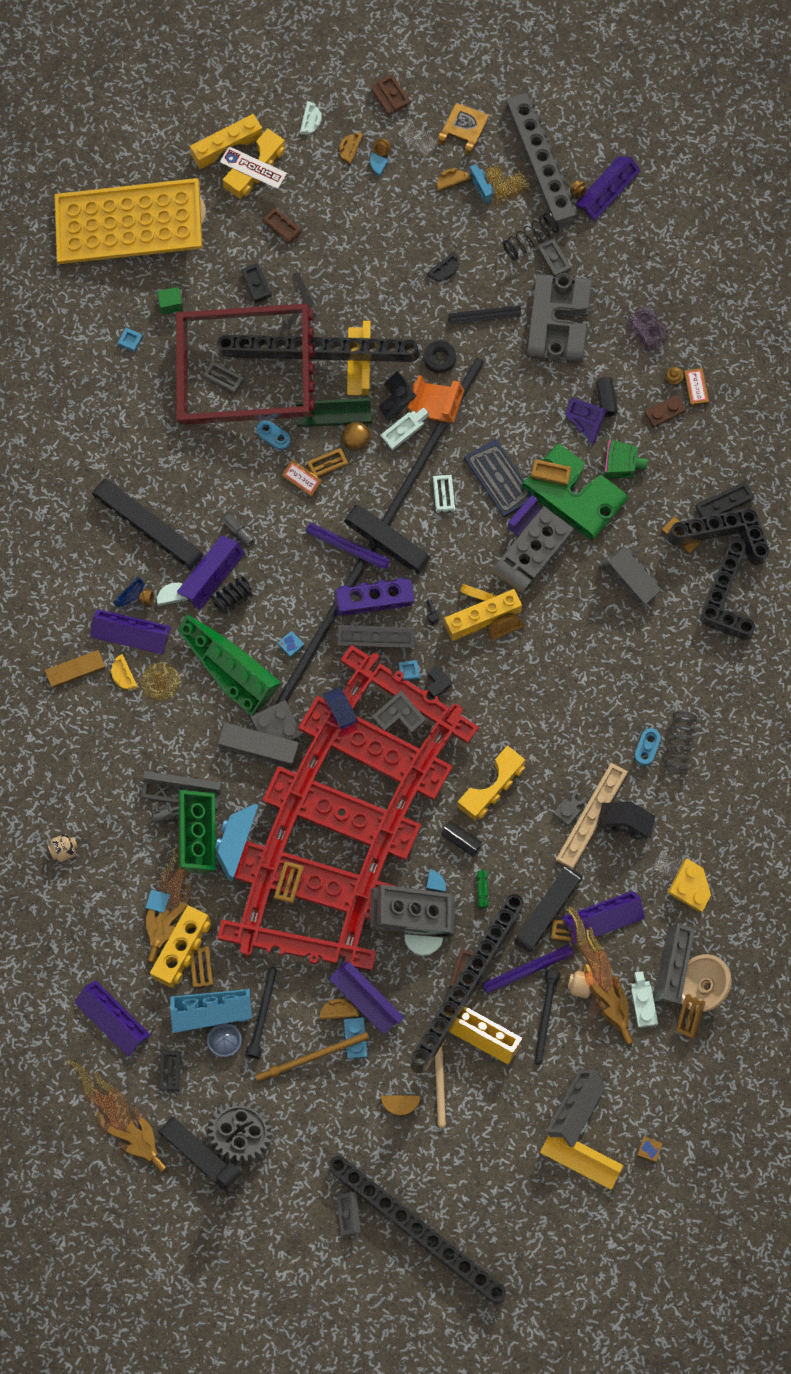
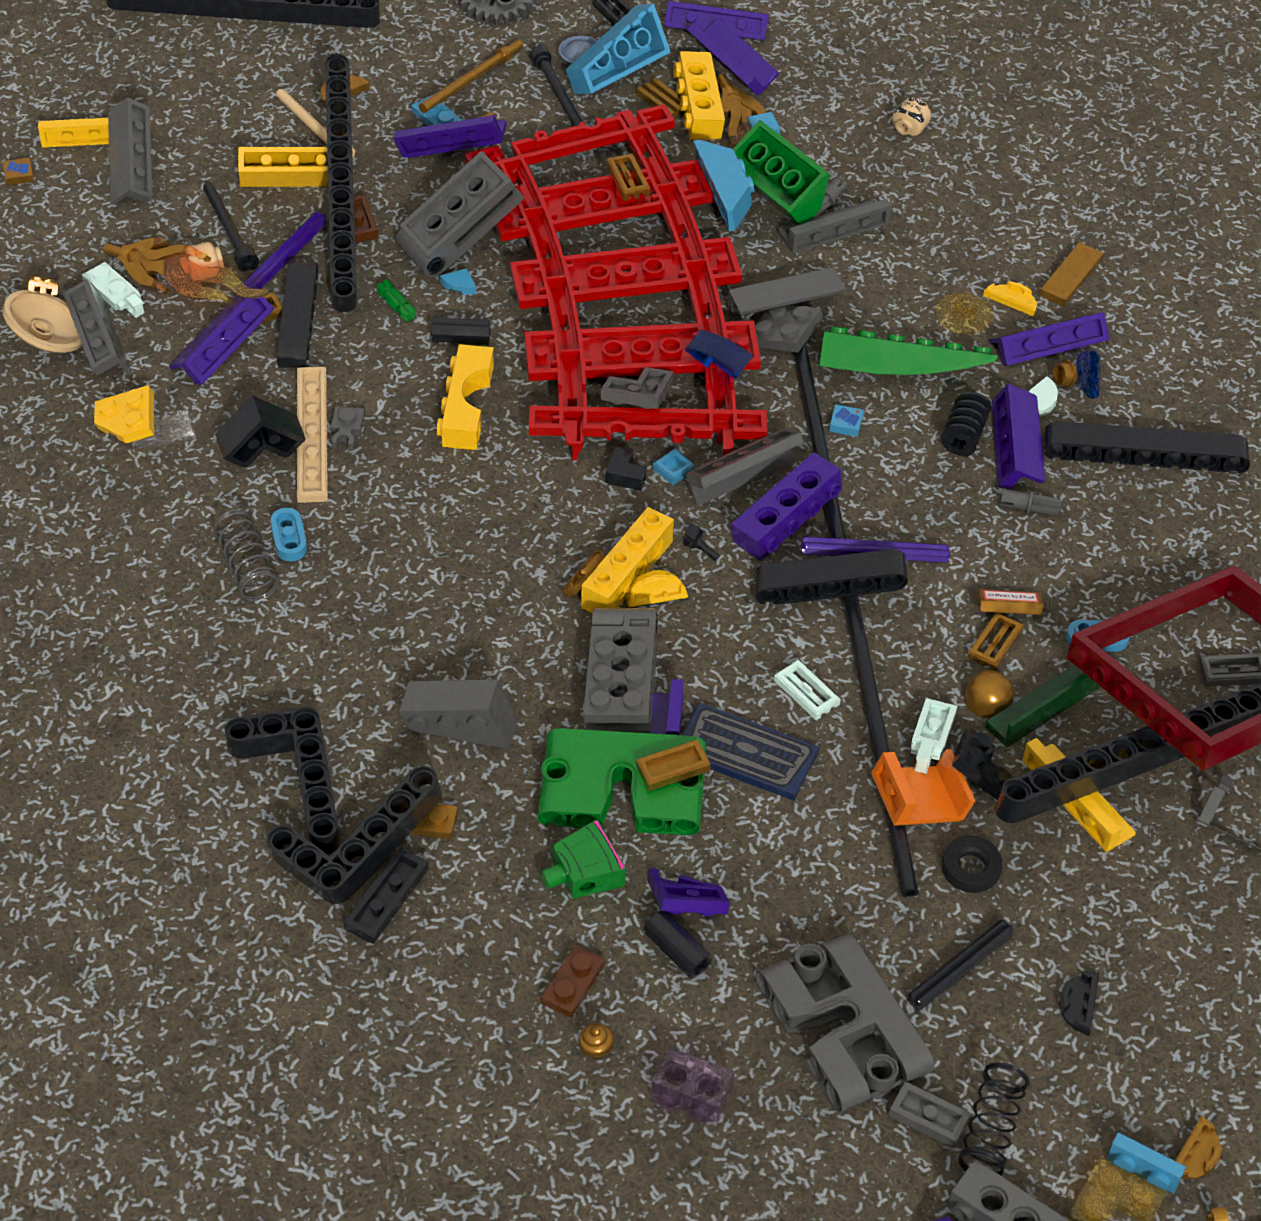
camera: 145 degrees right, 20 degrees down
(131, 972) = (735, 55): none -> dark purple panel
(696, 387) = (549, 1046): tile -> none

